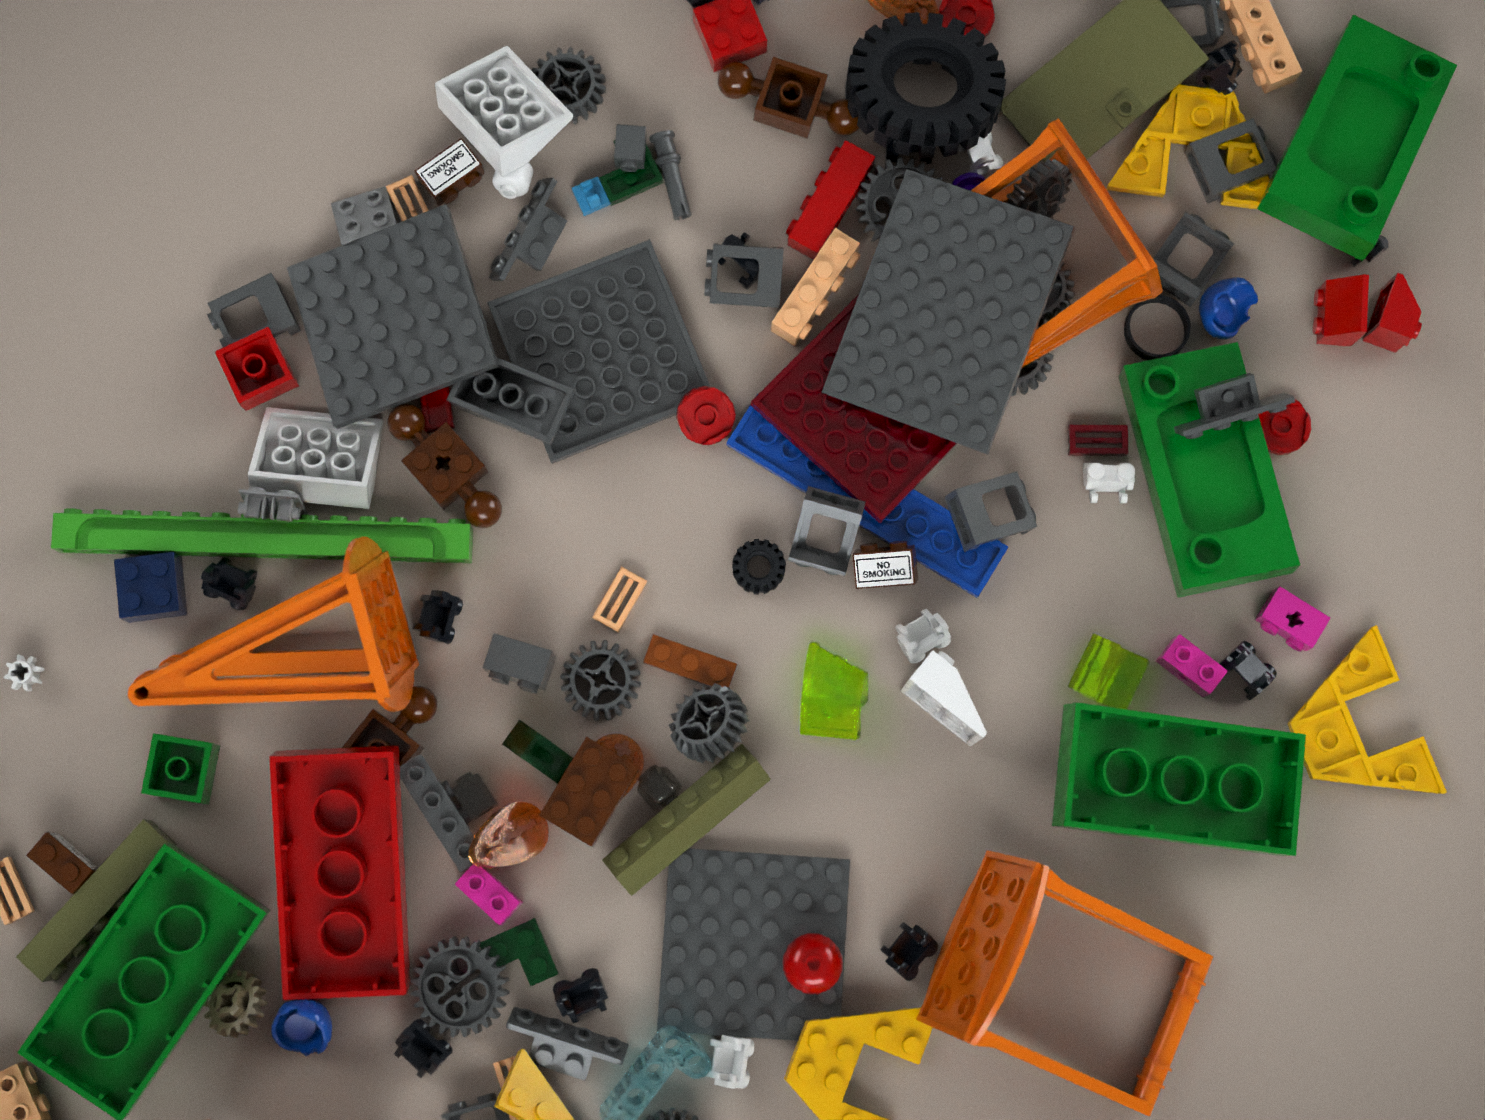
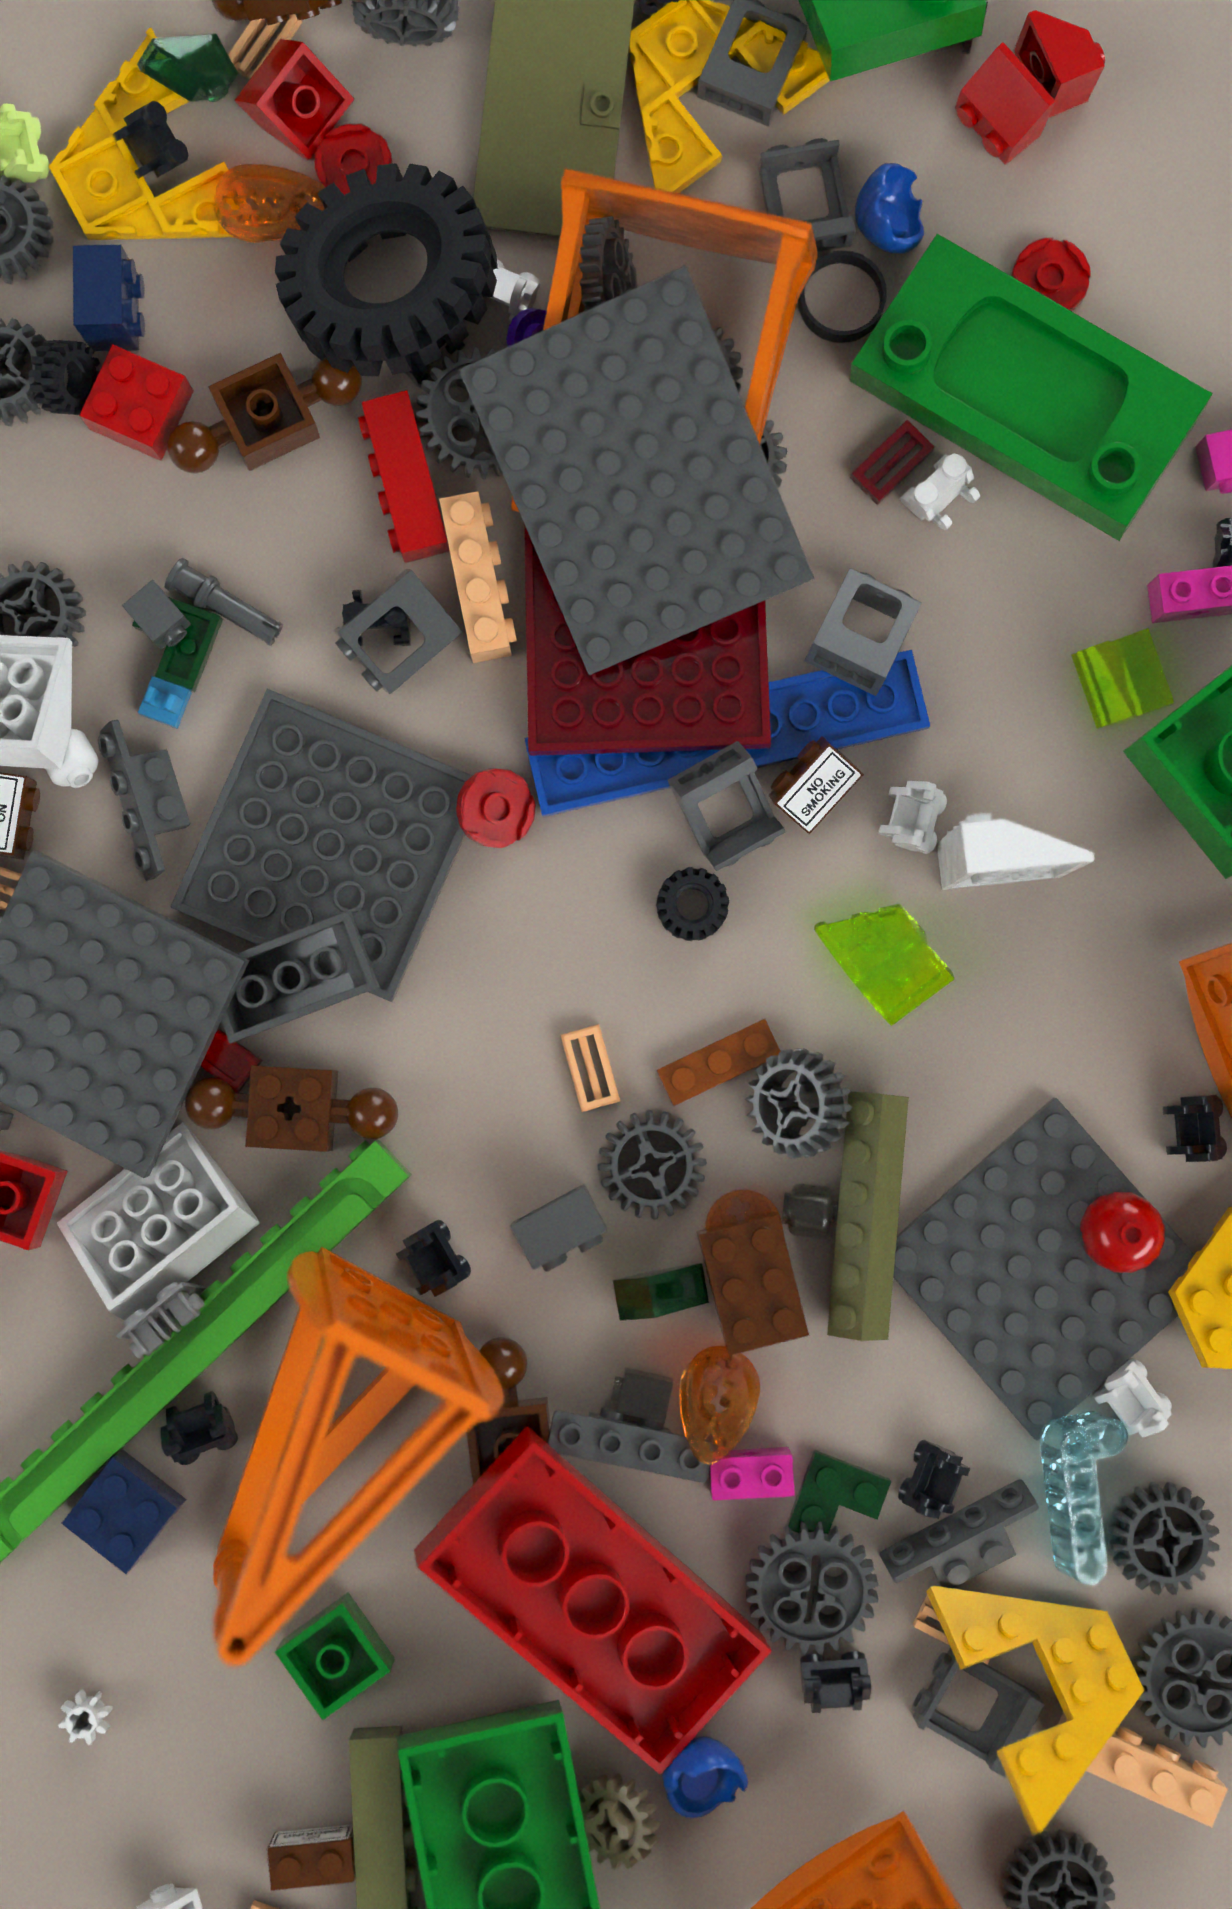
camera: 45 degrees left, 5 degrees up
(1229, 402) = (993, 299): dark grey bracket -> none

